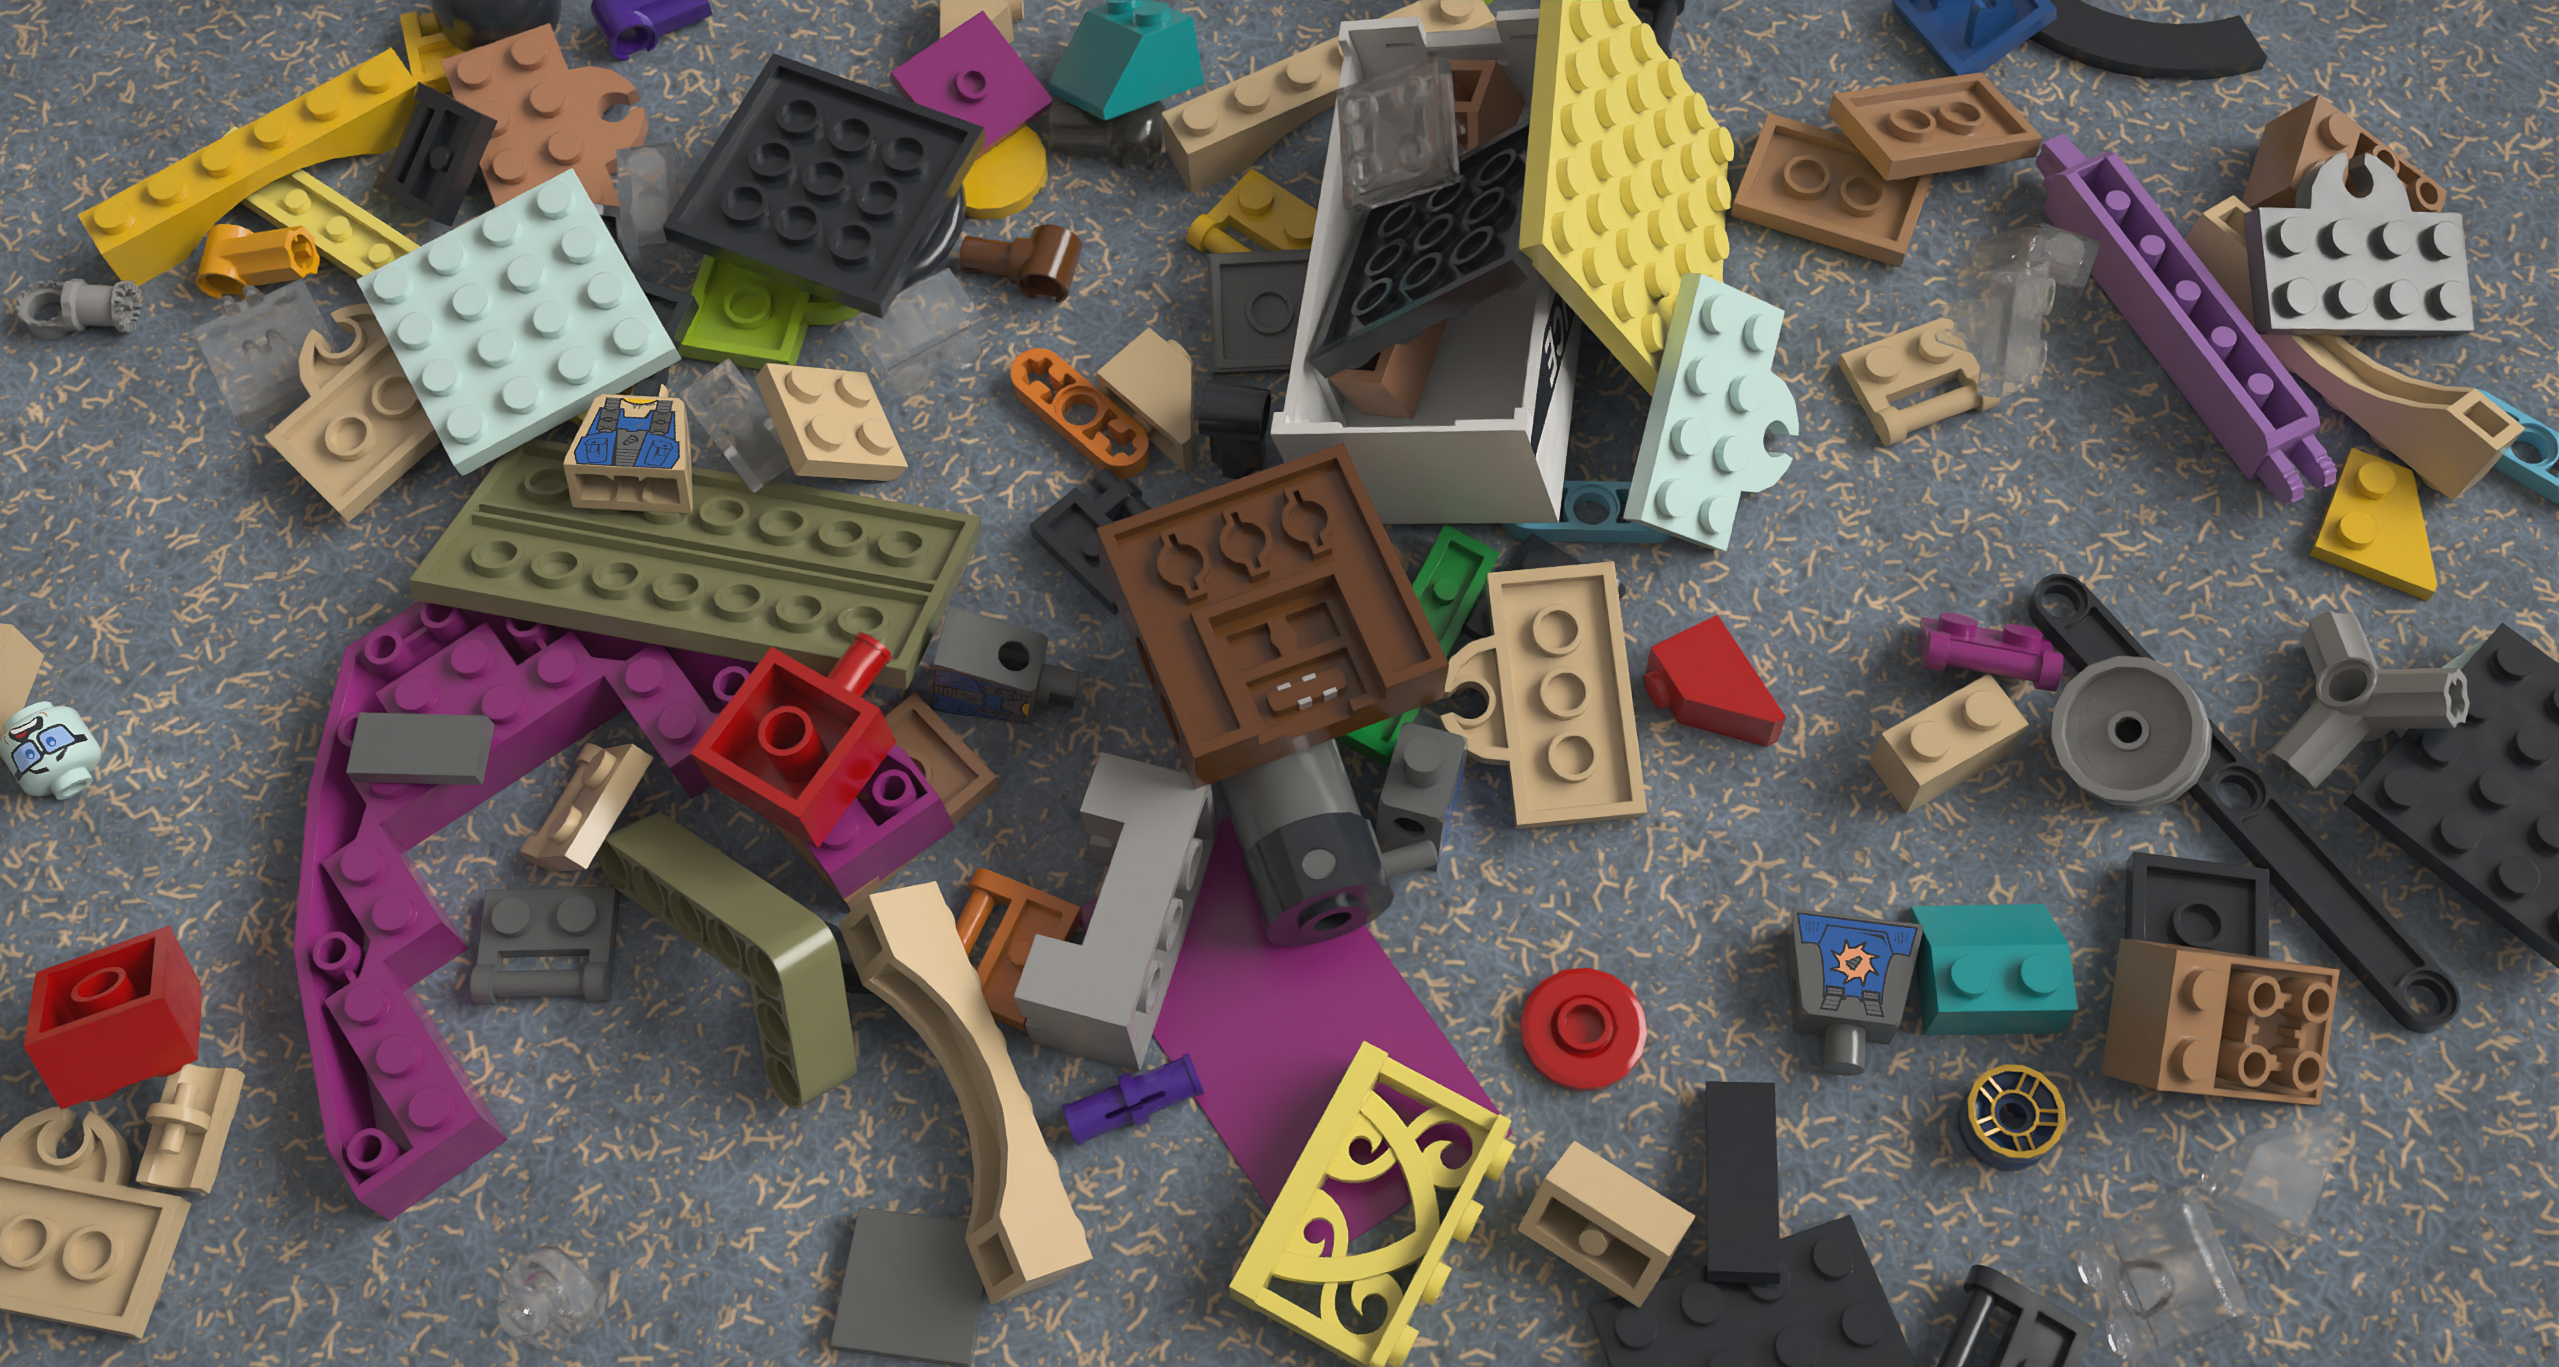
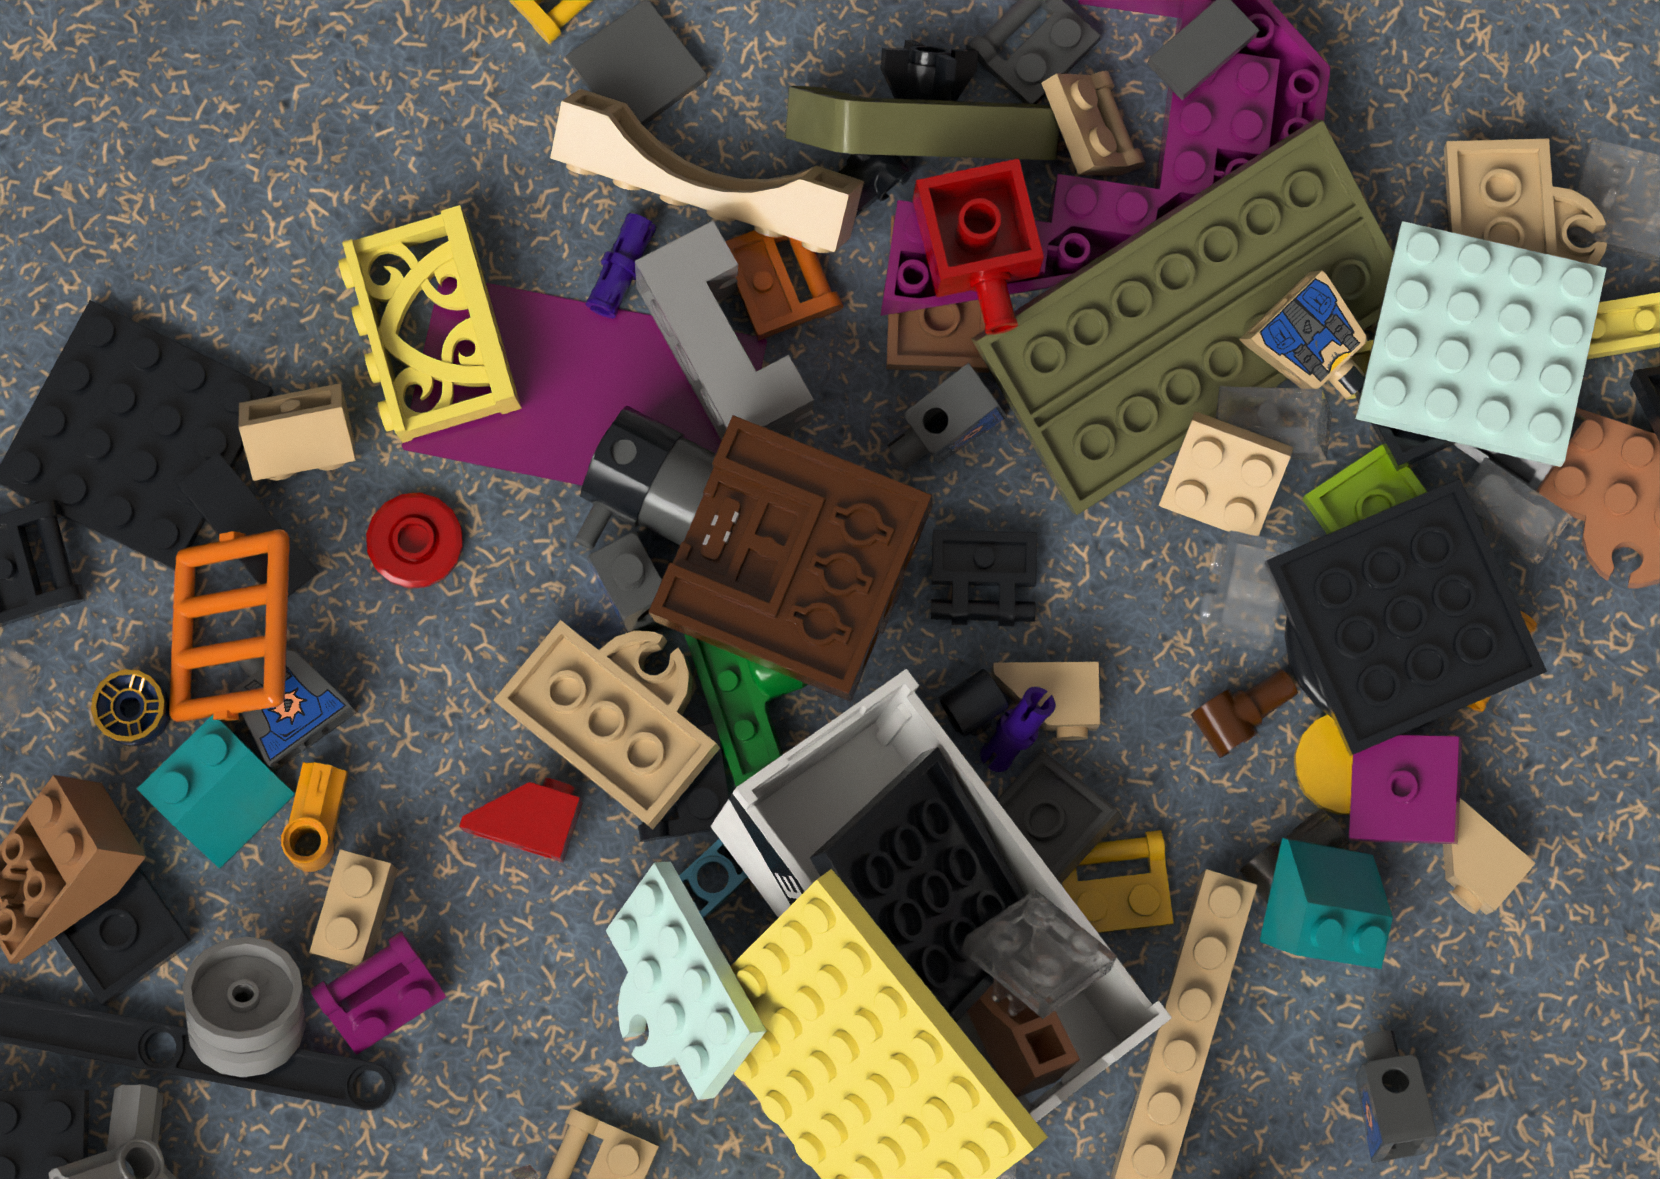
camera: 130 degrees right, 15 degrees up
(669, 990) = (927, 71): none -> black brick
(1074, 390) = (1133, 627): orange beam -> none
(1200, 365) = (1017, 729): none -> dark purple pin
(1782, 1049) = (270, 646): none -> orange bar
(1910, 861) = (315, 811): none -> light orange piece

